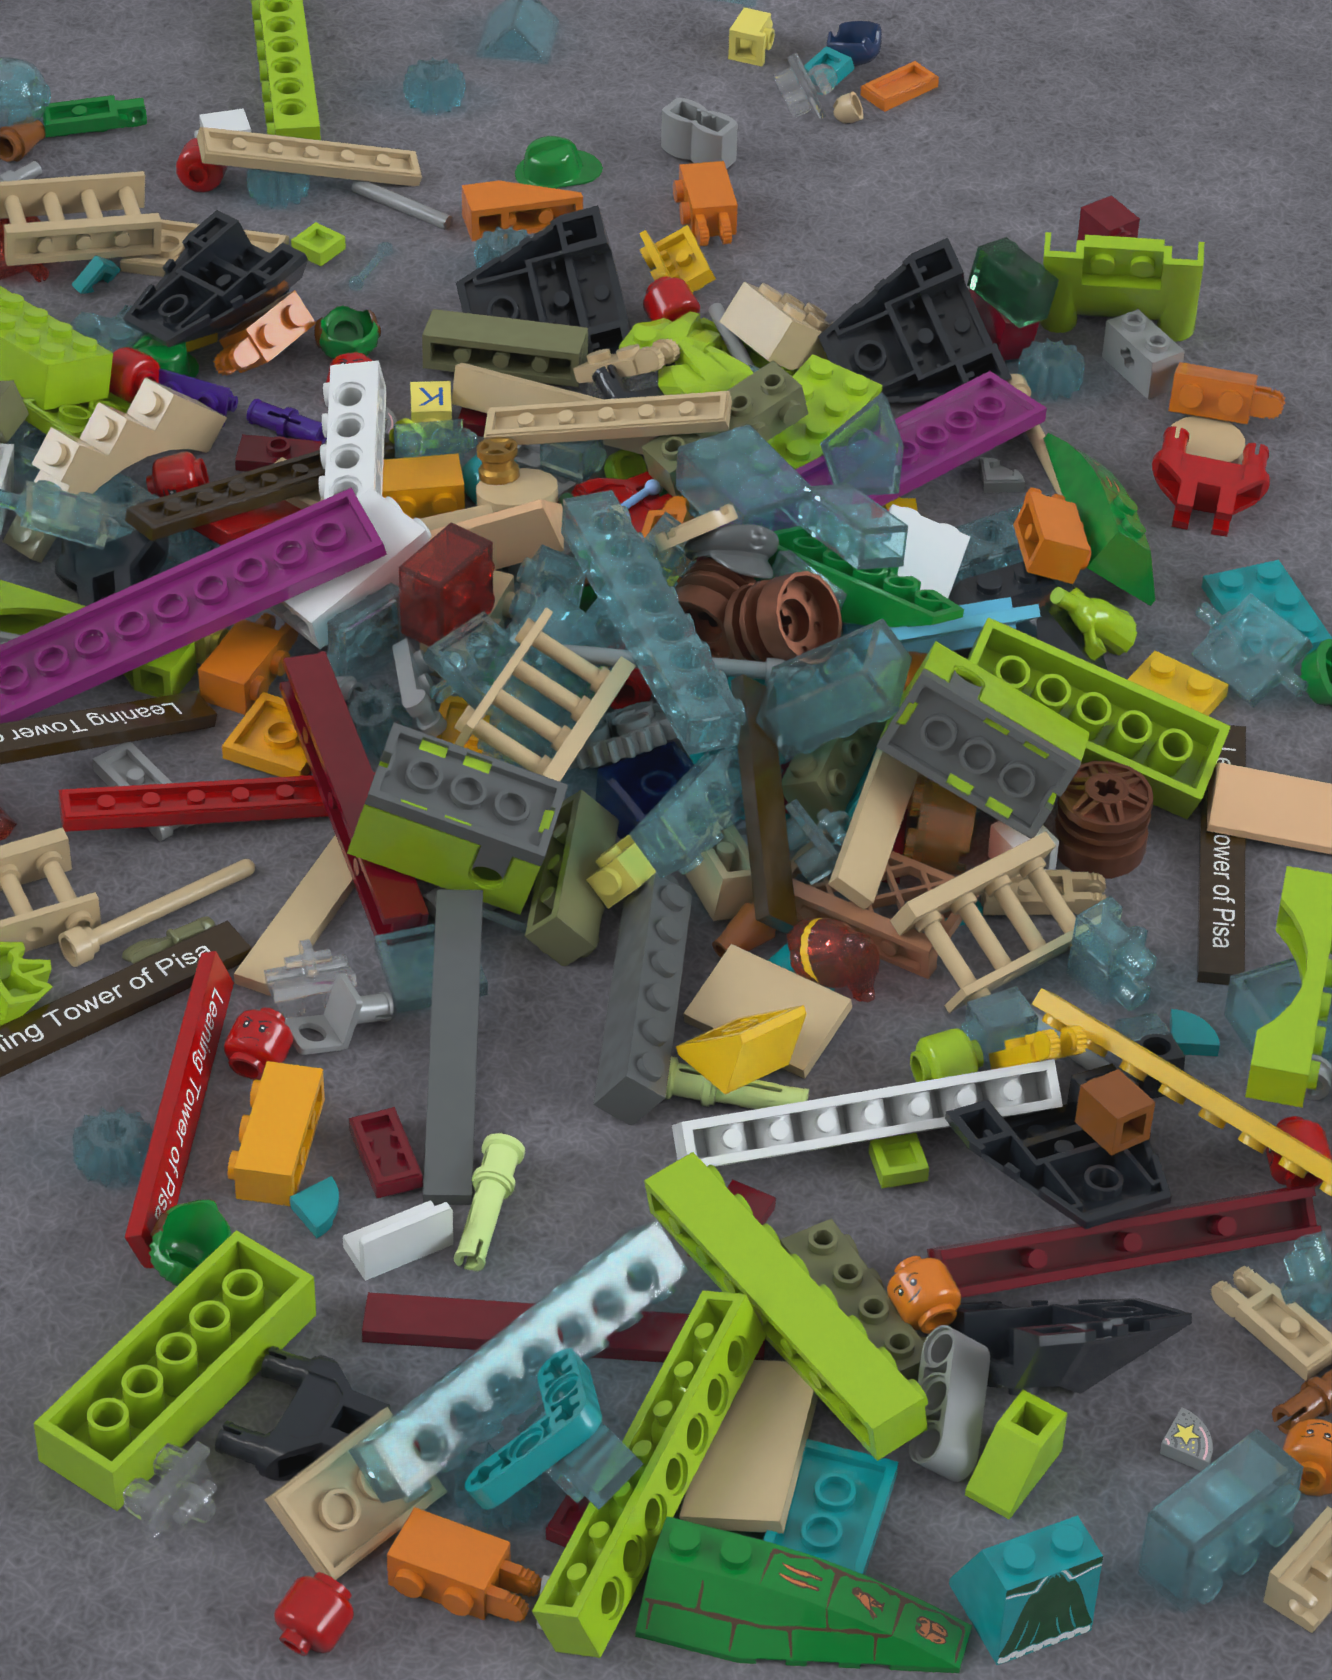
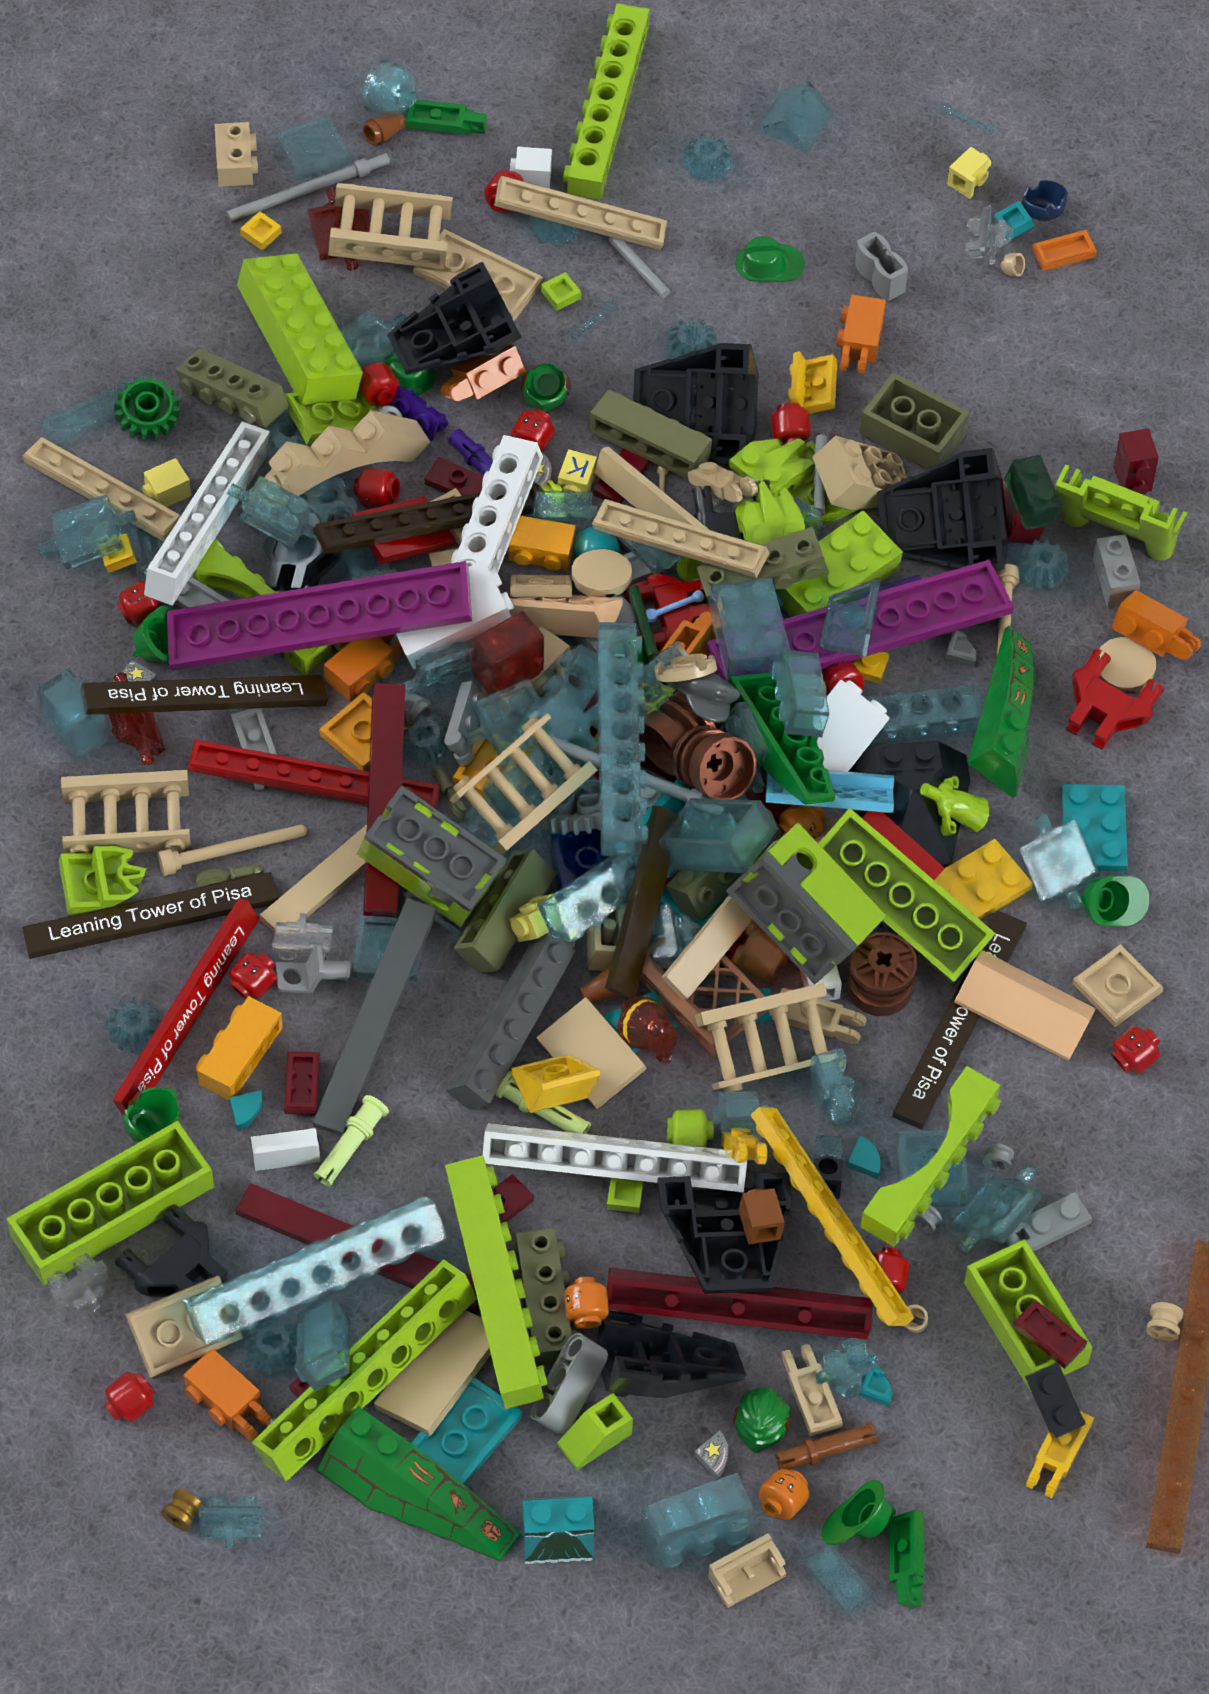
camera: 20 degrees right, 15 degrees up
(95, 271) = (391, 274): teal tile -> none
(498, 461) = (595, 545): pearl gold wheel -> none
(514, 205) = (714, 298): orange slope -> none
(569, 1421) = (307, 1335): teal beam -> none
(822, 263) = (914, 422): none -> olive brick
(1051, 537) = (953, 730): orange hinge -> none
(1230, 1376) = (761, 1418): none -> green hair

